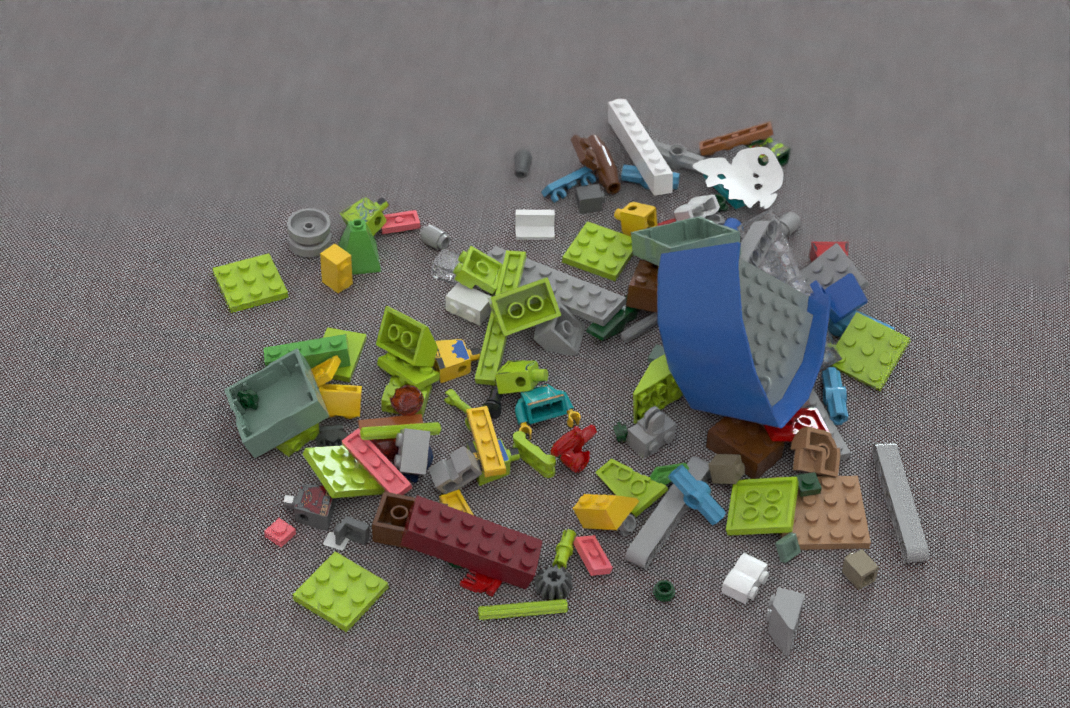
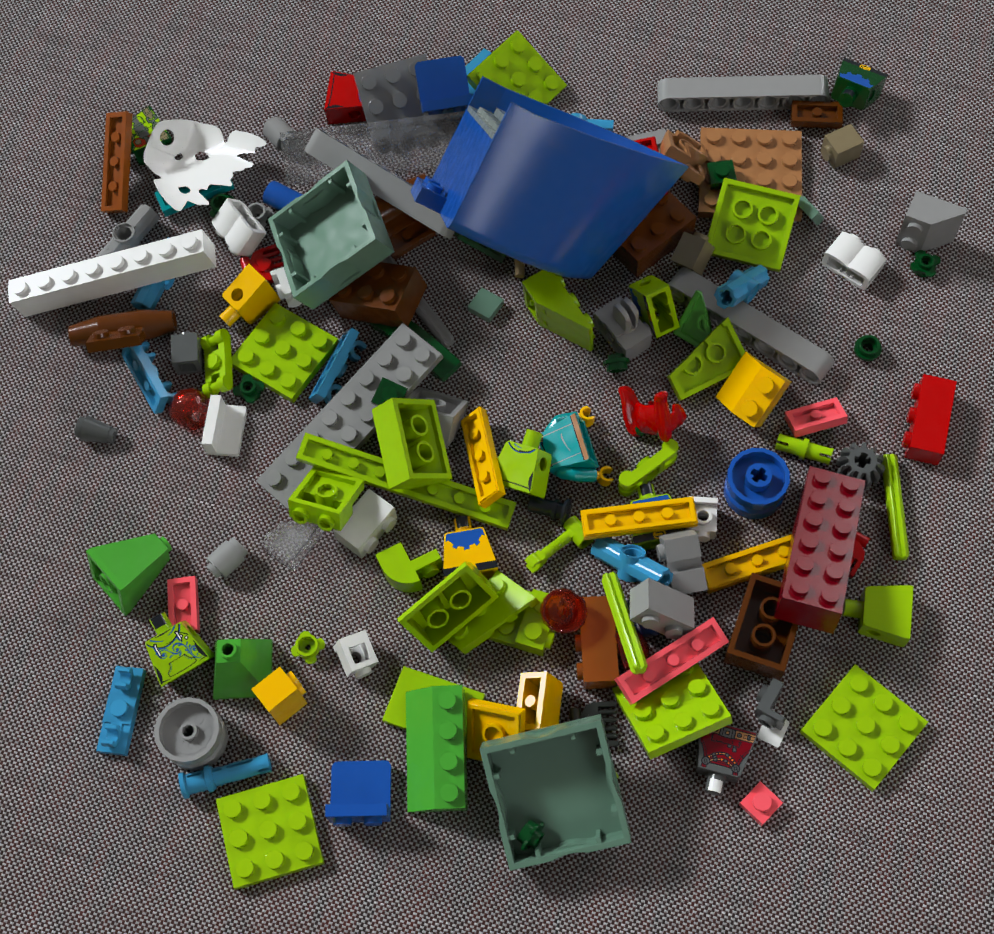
camera: 75 degrees left, 20 degrees up
(274, 321) = (360, 793): none -> blue bracket
(282, 249) = (212, 777): none -> dark azure pin
(325, 203) = (121, 711): none -> dark azure plate
(371, 301) = (358, 645): none -> white brick
(376, 286) = (302, 641): none -> lime plate
(420, 189) = (128, 568): none -> bright green slope
(429, 599) = (883, 613): none -> lime torso
(440, 323) = (406, 574): none -> lime brick
(450, 442) = (630, 561): none -> dark azure piece
(495, 489) = (706, 508): none -> white brick
(528, 512) = (756, 483): none -> blue wheel
(530, 354) = (482, 457): none -> yellow tile
(548, 202) = (189, 408): none -> clear red hair
(564, 293) = (388, 390): none -> dark green plate
(567, 235) = (251, 395): none -> dark green plate
(584, 215) = (217, 363): none -> lime plate
(592, 275) = (336, 366): none -> dark azure plate
(601, 628) = (929, 419): none -> red brick
(671, 444) = (651, 297): none -> lime torso
(753, 635) = (925, 270): none -> dark green plate
(891, 553) = (816, 114): none -> reddish brown plate
(923, 574) = (857, 85): none -> dark green torso

